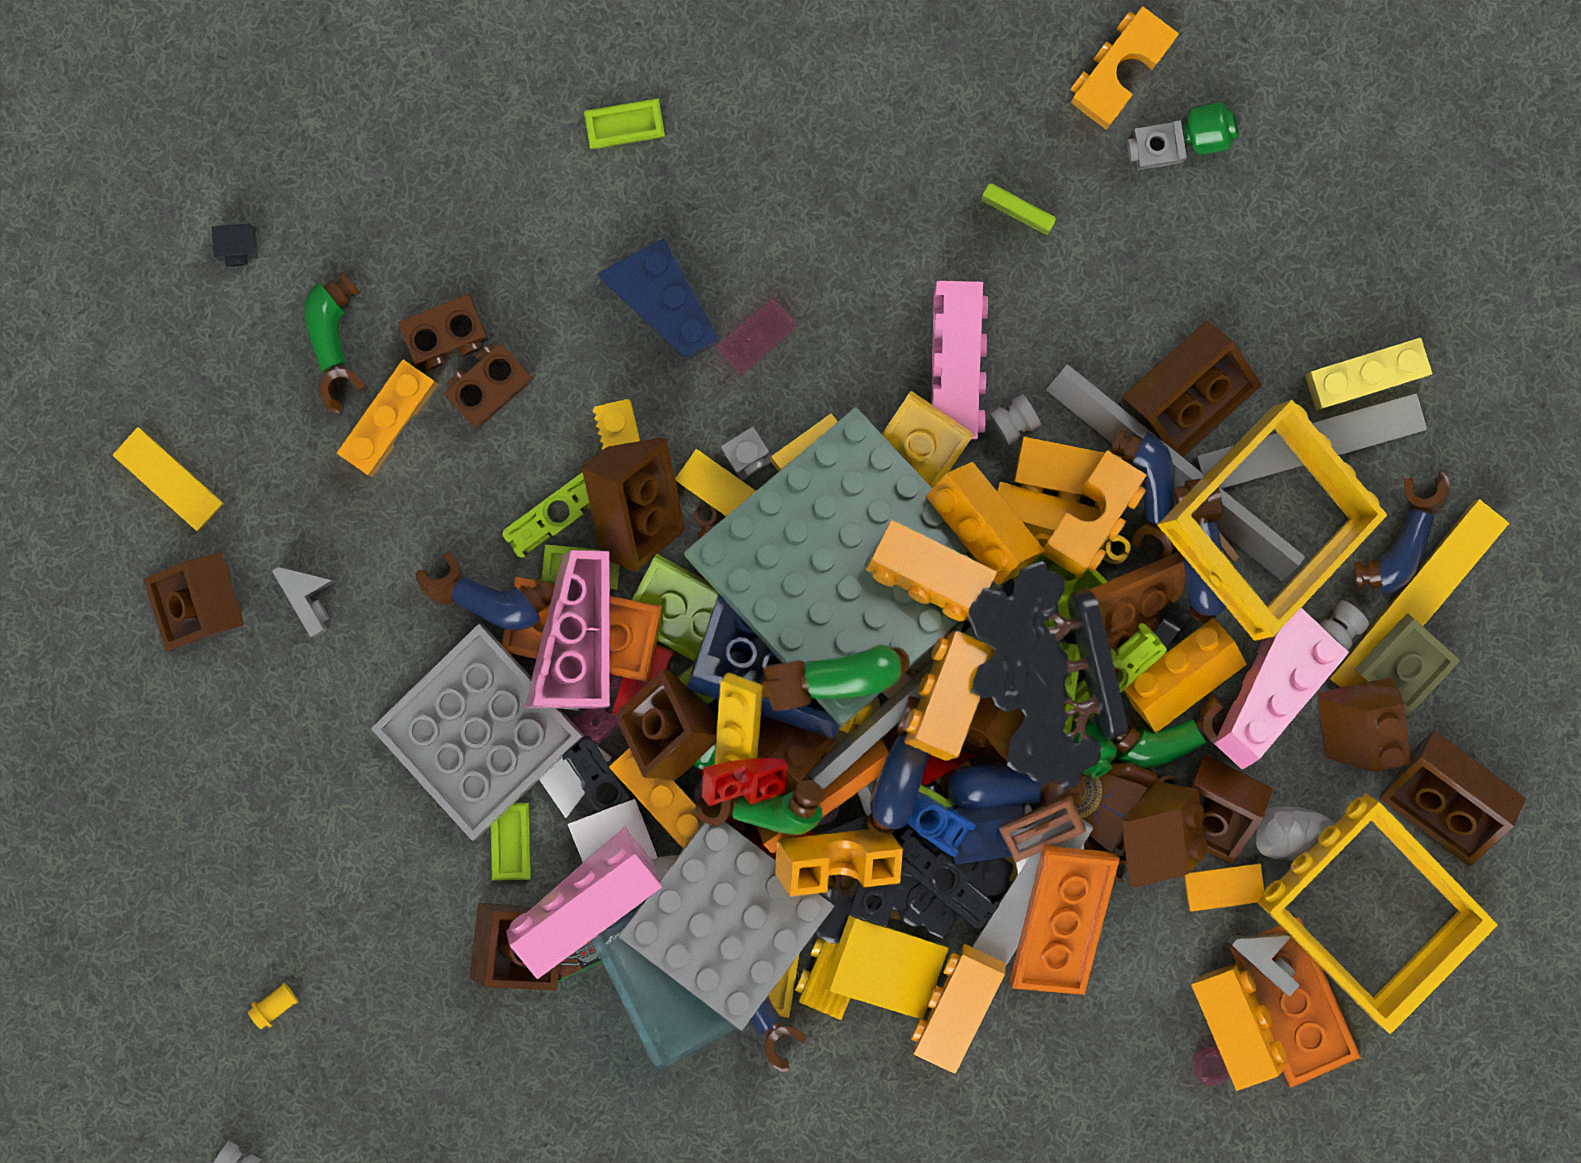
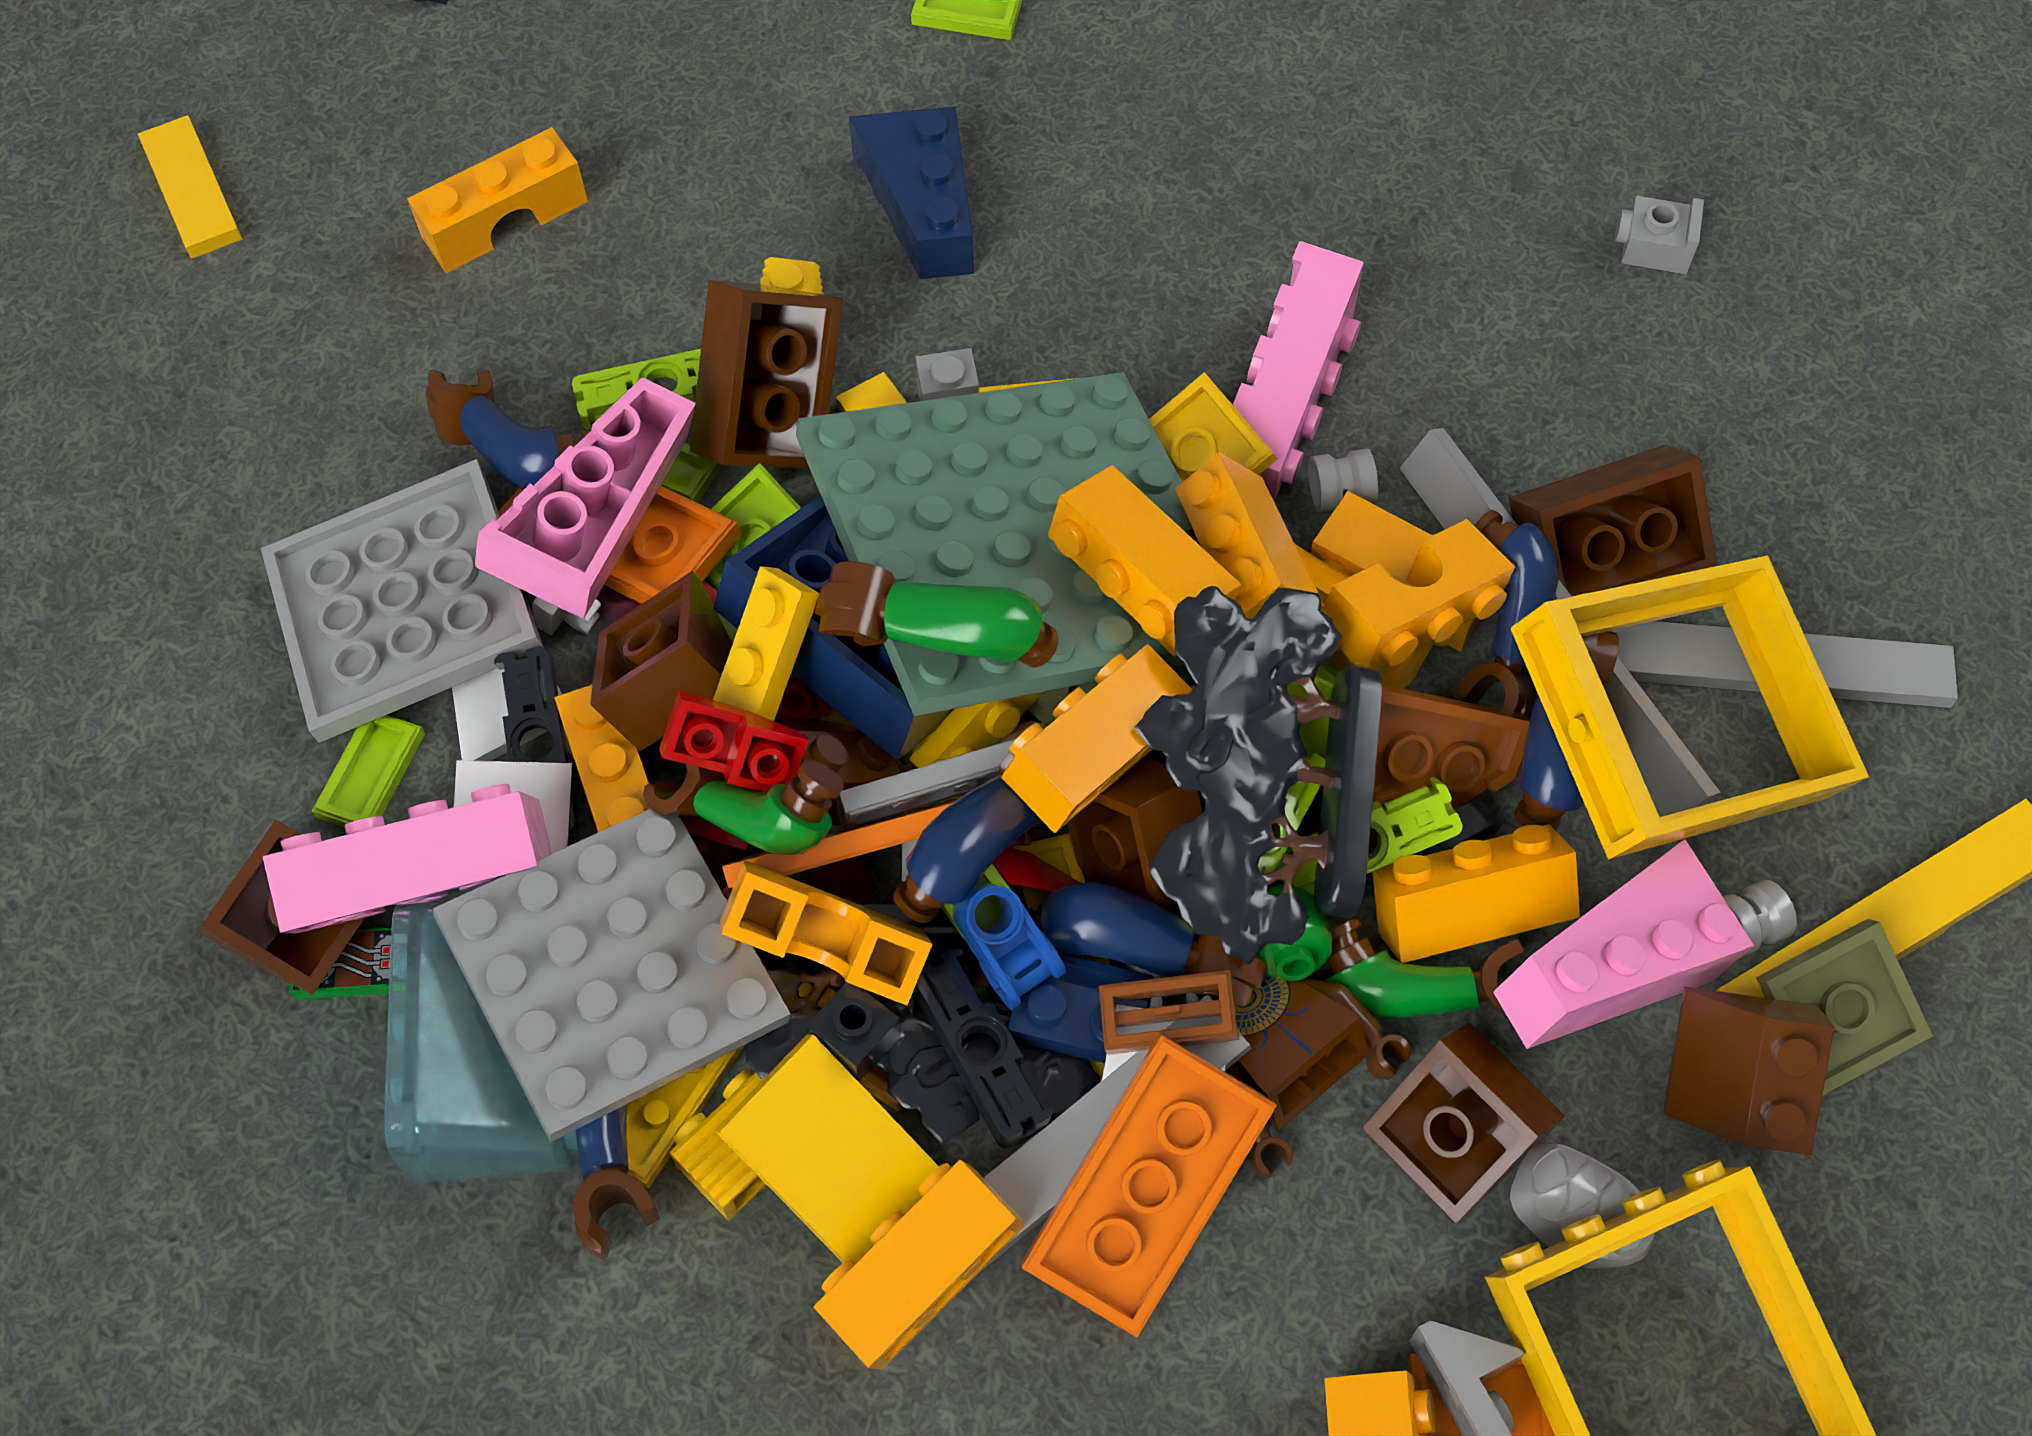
camera: 20 degrees right, 25 degrees down
(194, 601) = (132, 318): reddish brown slope -> none
(298, 589) = (271, 357): light grey slope -> none
(322, 320) = (480, 74): piece -> none
(441, 322) = (624, 133): reddish brown brick -> none
(494, 393) = (648, 210): reddish brown brick -> none
(605, 724) = (572, 654): clear pink plate -> none
(756, 337) = (1026, 273): clear pink plate -> none
(1018, 208) = (1441, 241): lime tile -> none
(1125, 550) = (1433, 677): yellow pin -> none
(1142, 39) = (1676, 113): light orange arch -> none
(1164, 834) = (1362, 1105): reddish brown slope -> none
(1210, 128) = (1740, 234): green head -> none
(1224, 887) = (1431, 1253): light orange tile -> none
(1368, 374) = (1888, 590): light yellow brick -> none
(1402, 560) = (1887, 843): dark blue piece -> none
(1453, 798) = (1873, 1253): reddish brown slope -> none

